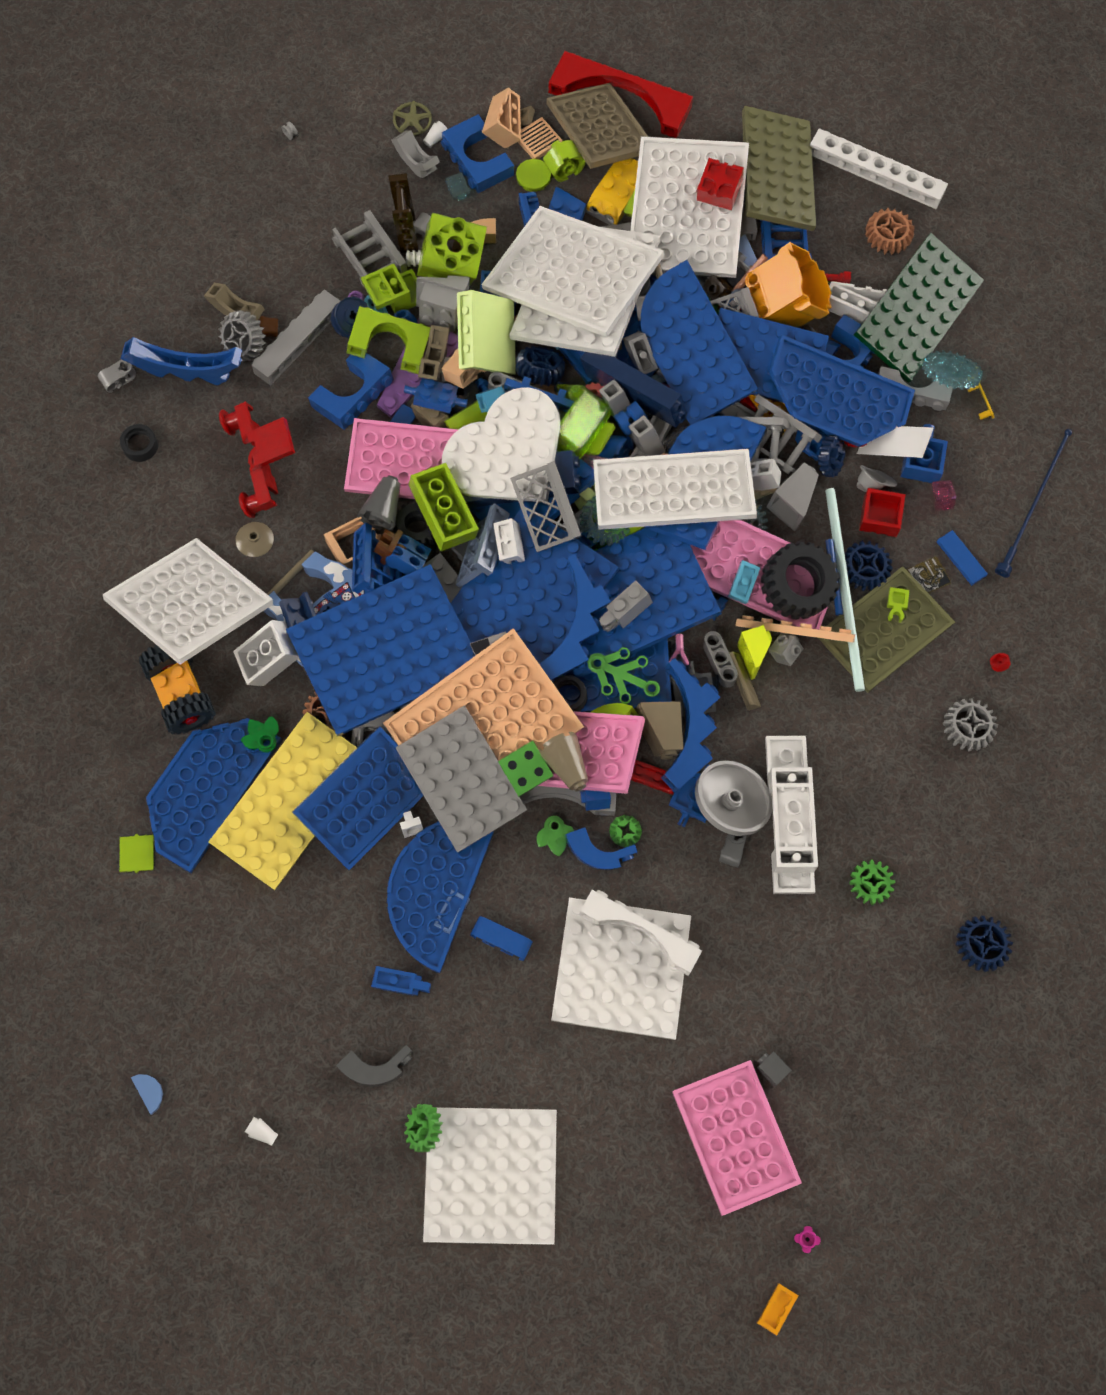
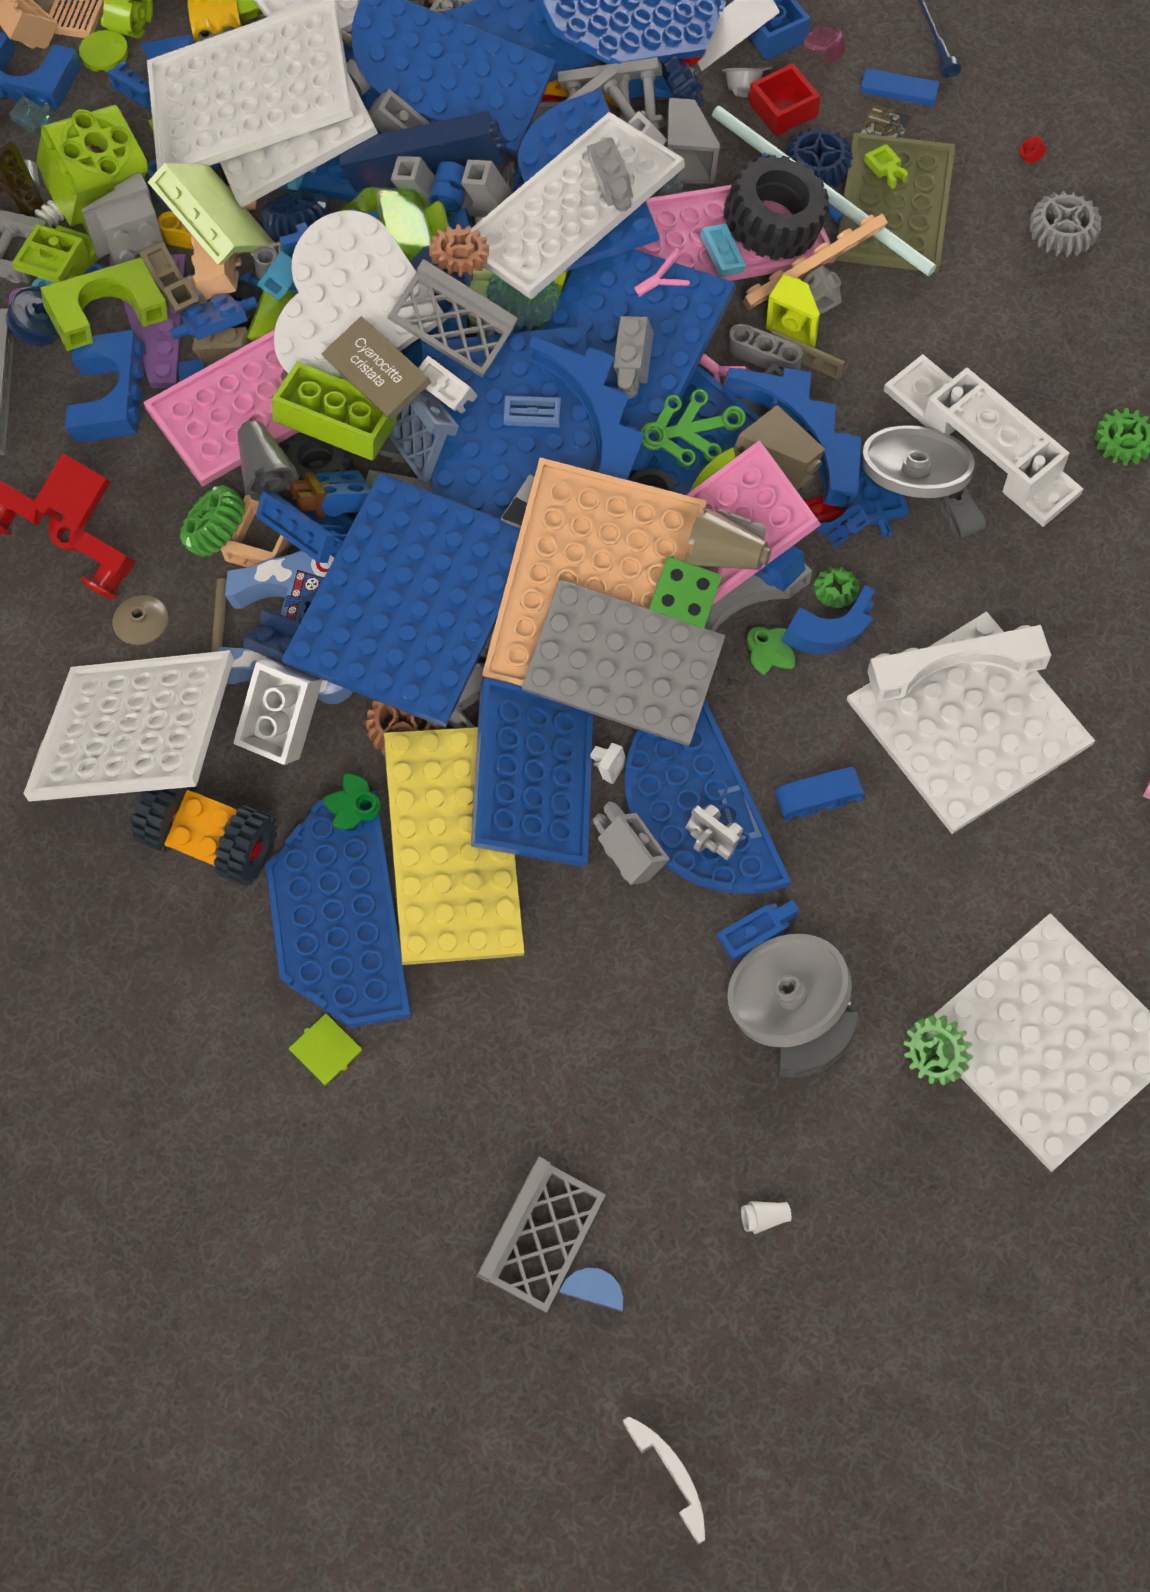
camera: 35 degrees left, 5 degrees down
(102, 1185) = (646, 1438): none -> white slope
(139, 1025) = (515, 1222): none -> light grey fence
(332, 516) = (212, 521): none -> bright green gear
(377, 879) = (629, 844): none -> light grey hinge
(379, 1029) = (789, 990): none -> light grey dish
(419, 913) = (711, 833): none -> light grey hips
(480, 502) = (376, 368): none -> dark tan tile
(556, 606) = (527, 415): none -> medium blue tile
(585, 467) = (459, 250): none -> nougat gear
(588, 757) = (756, 528): none -> light grey axle
(662, 802) = (842, 531): none -> blue piece
(679, 573) = (656, 280): none -> bright pink plant
(704, 492) = (611, 174): none -> light grey hinge

